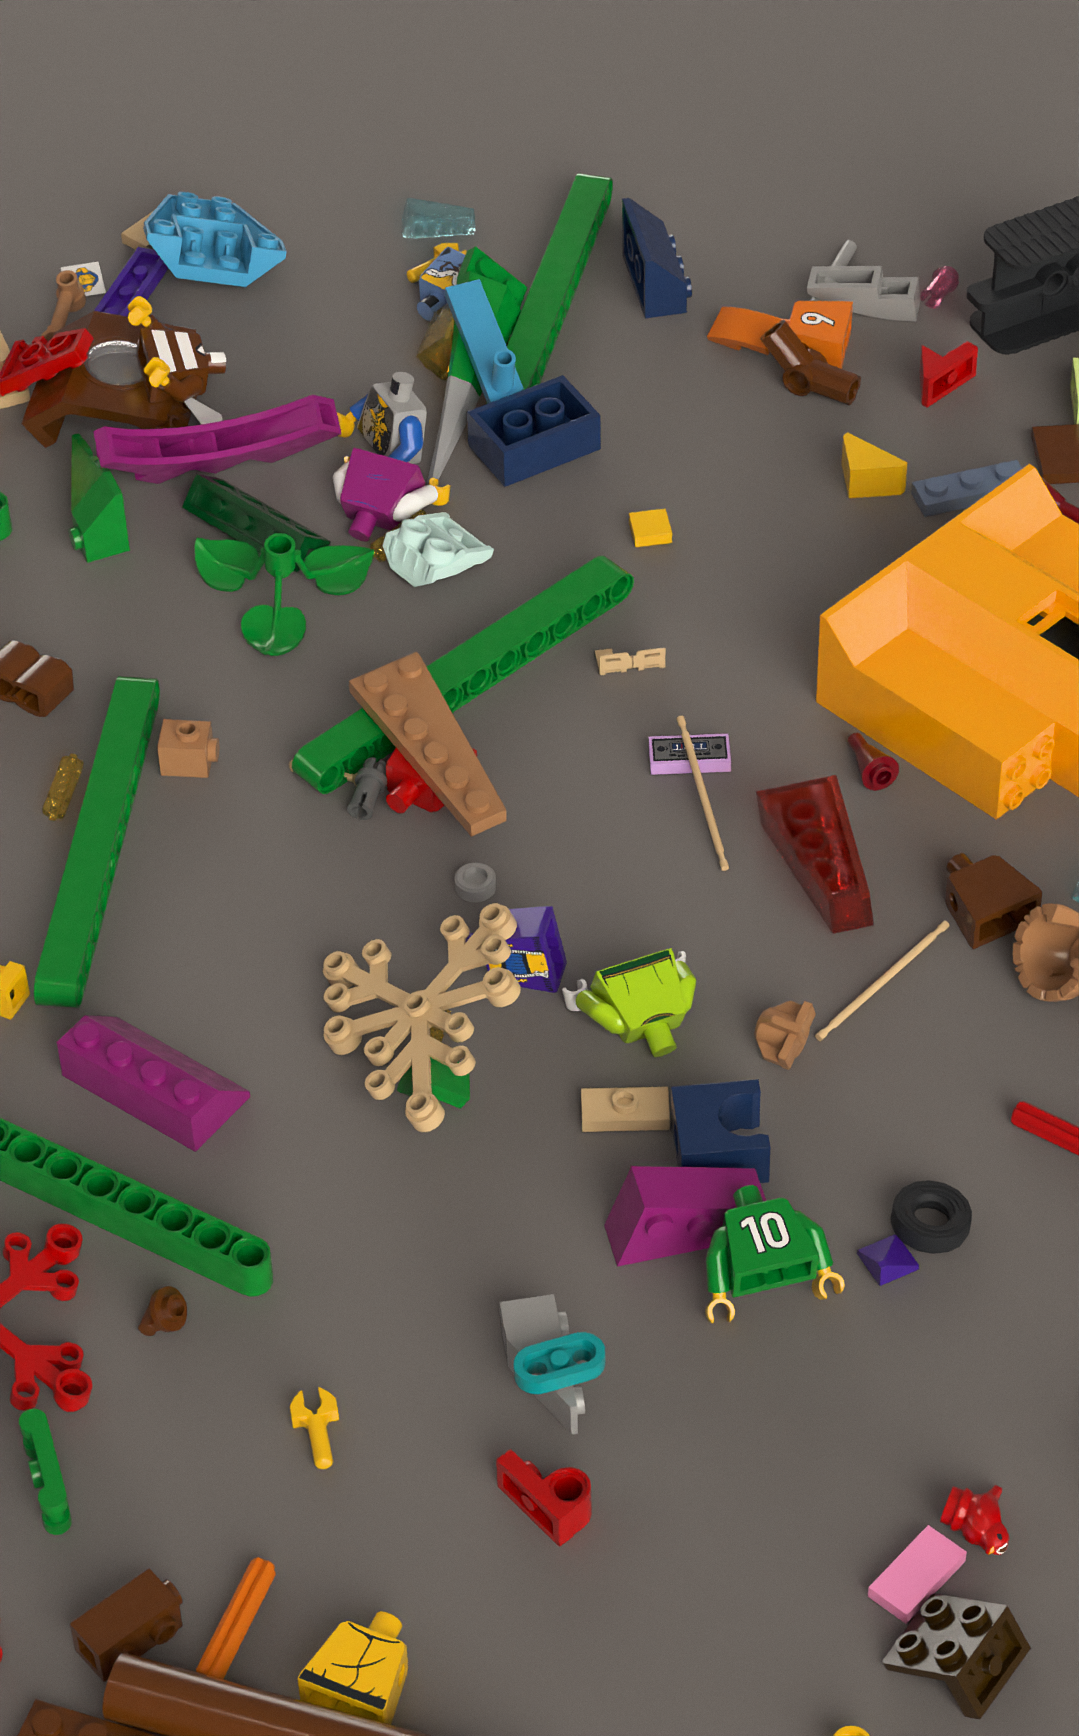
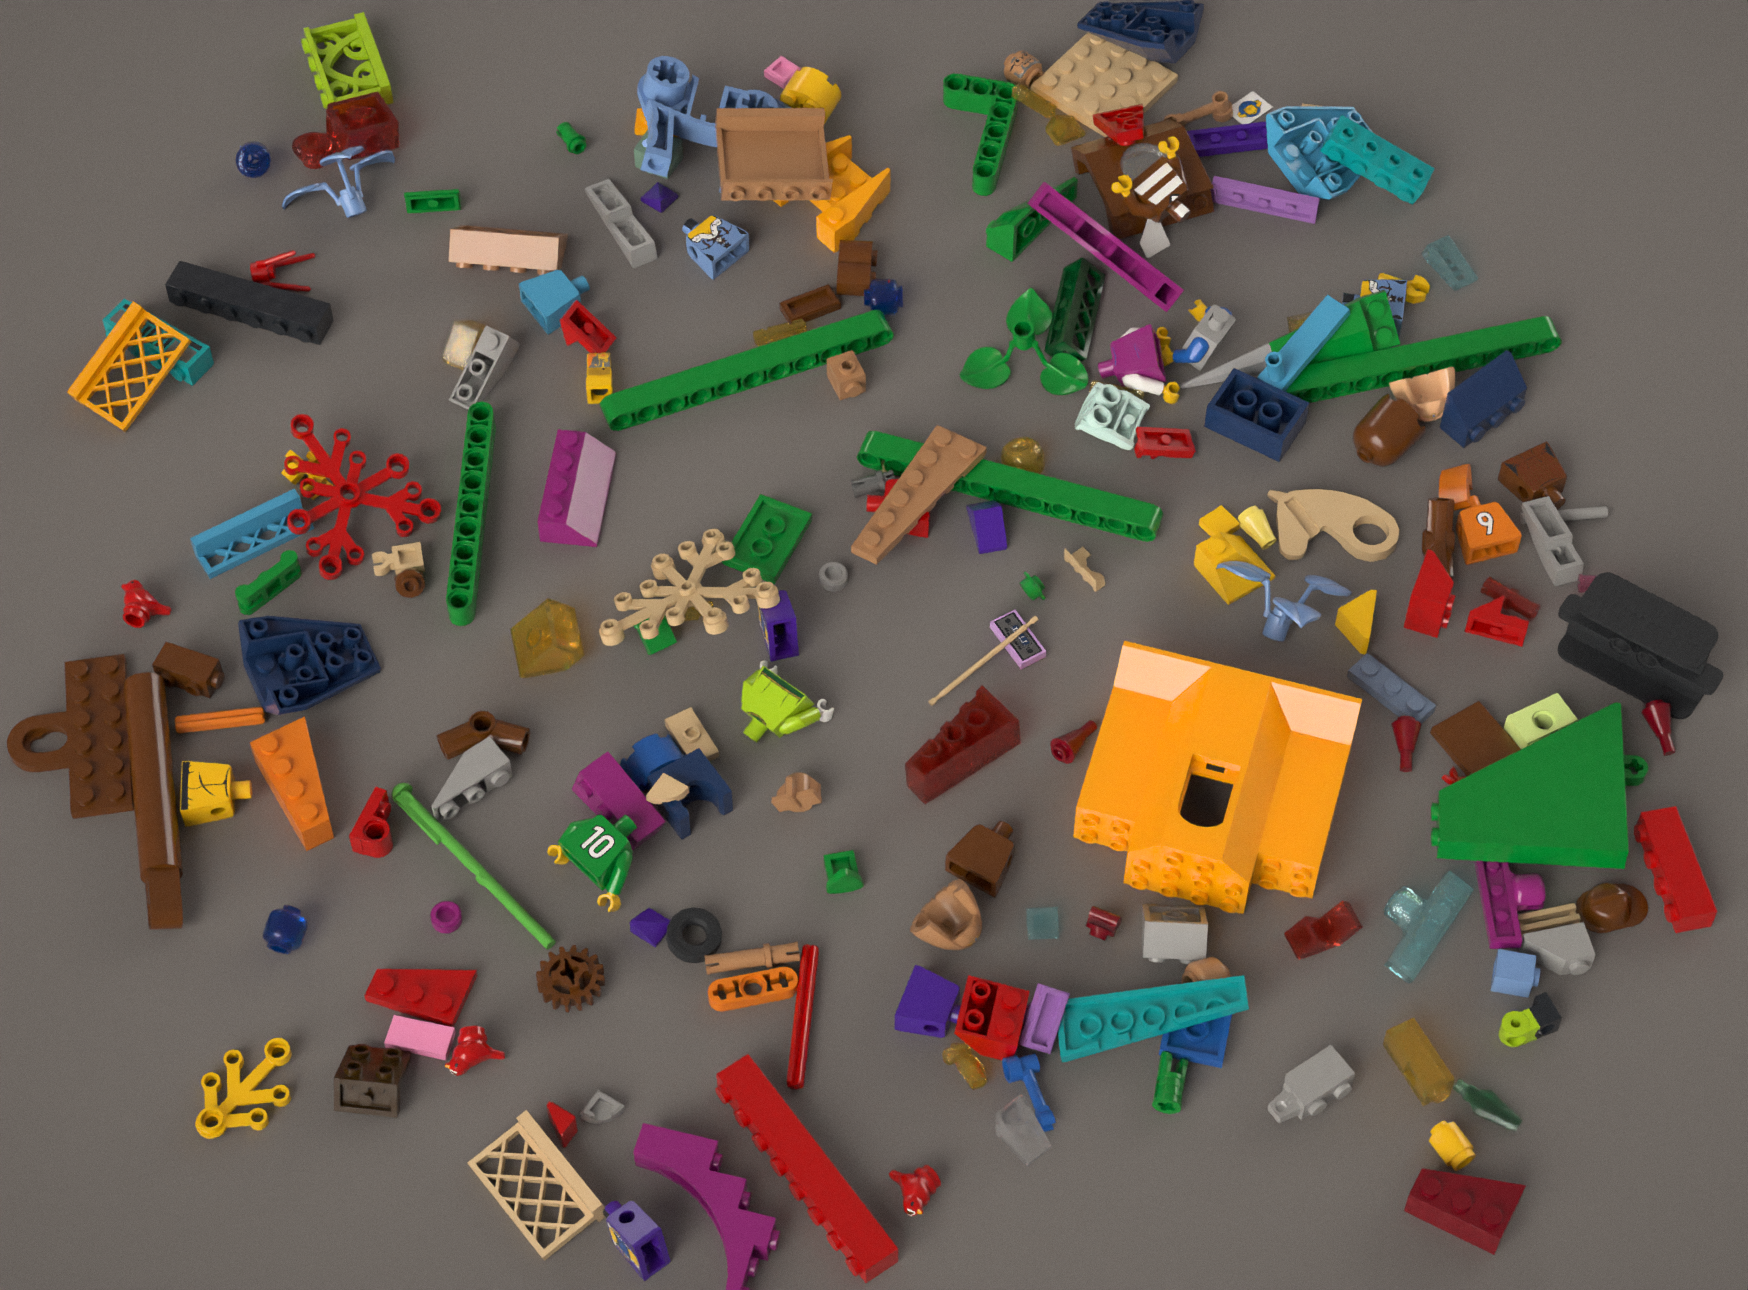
camera: 60 degrees right, 10 degrees up
(42, 745) = (810, 304): none -> reddish brown tile
(98, 666) = (884, 296): none -> clear blue head
(121, 1302) = (402, 557): none -> tan plate
(217, 1482) = (303, 660): none -> dark blue wedge
(240, 306) = (1265, 199): none -> medium lavender plate
(266, 199) = (1377, 160): none -> teal brick
(316, 1424) = (374, 692): yellow bar -> none
(372, 906) = (768, 537): none -> green plate
(374, 1195) = (547, 640): none -> clear yellow slope
(418, 1558) = (293, 776): none -> orange wedge
(430, 639) = (1024, 454): none -> clear yellow hair
(473, 1314) = (465, 736): none -> reddish brown piece
(505, 712) = (987, 526): none -> dark purple slope
(509, 522) = (1164, 442): none -> red plate
(557, 1363) = (453, 785): teal plate -> none
(608, 295) = (1426, 392): none -> light nougat hair
(610, 1427) = (437, 832): none -> bright green bar
(628, 708) = (1032, 587): none -> green plate
(638, 340) = (1387, 431): none -> reddish brown cylinder
(639, 1146) = (648, 757): none -> blue cylinder
(657, 1662) = (285, 929): none -> clear blue head
(681, 496) = (1256, 525): none -> light yellow cone
(696, 442) = (1308, 512): none -> tan animal
(719, 542) = (1224, 548): none -> yellow slope
(721, 1137) = (667, 790): none -> tan tile
(739, 1474) = (446, 917): none -> magenta tile
(774, 270) = (1534, 475): none -> reddish brown torso
(827, 525) = (1285, 612): none -> medium blue plant
(846, 1545) = (422, 993): none -> red wing
(882, 396) = (1431, 598): none -> red slope
(882, 980) = (884, 830): tan piece -> none
(911, 352) = (1512, 599): none -> clear red pin
(921, 1040) = (842, 872): none -> green tile
(926, 1366) = (558, 987): none -> reddish brown gear
(1004, 1159) = (752, 958): none -> medium nougat pin
(1048, 1206) = (745, 1000): none -> orange beam

